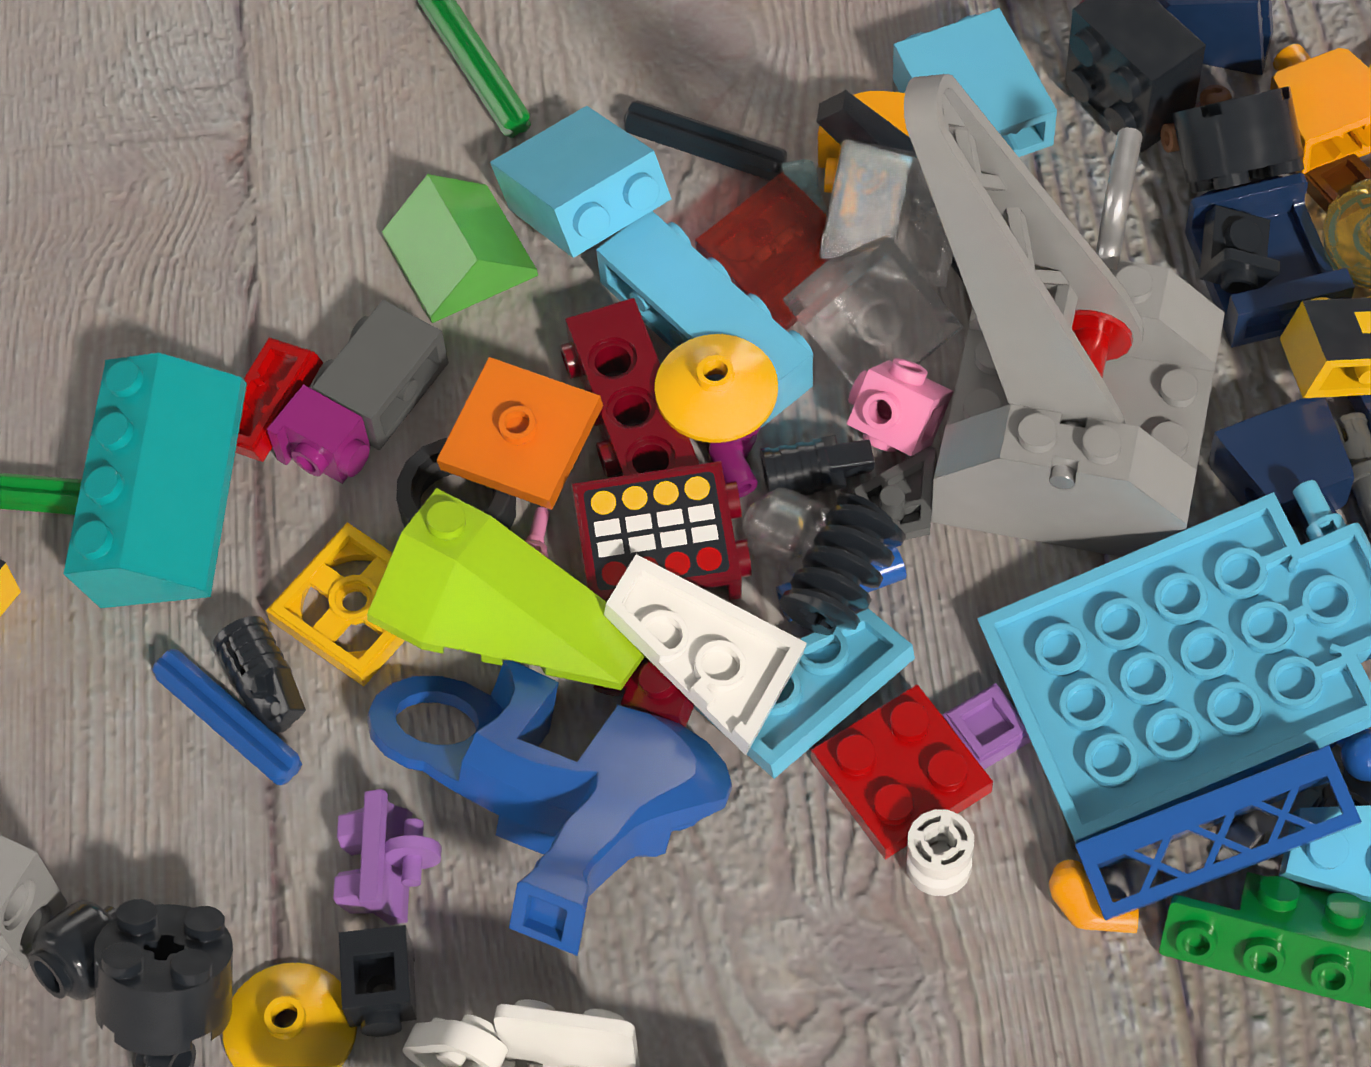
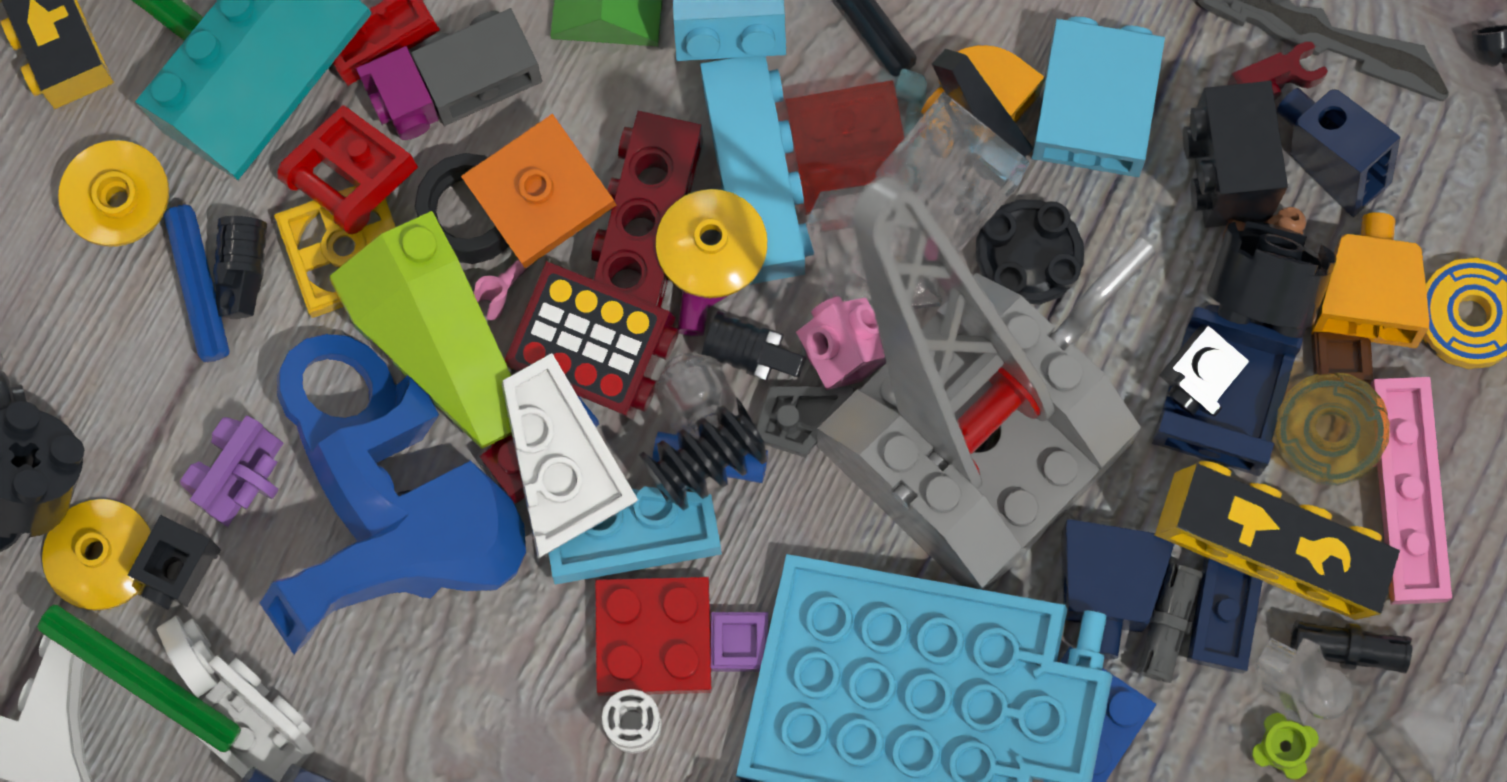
camera: 30 degrees right, 15 degrees up
(85, 655) = (100, 174): none -> yellow dish
(314, 507) = (358, 155): none -> red plate

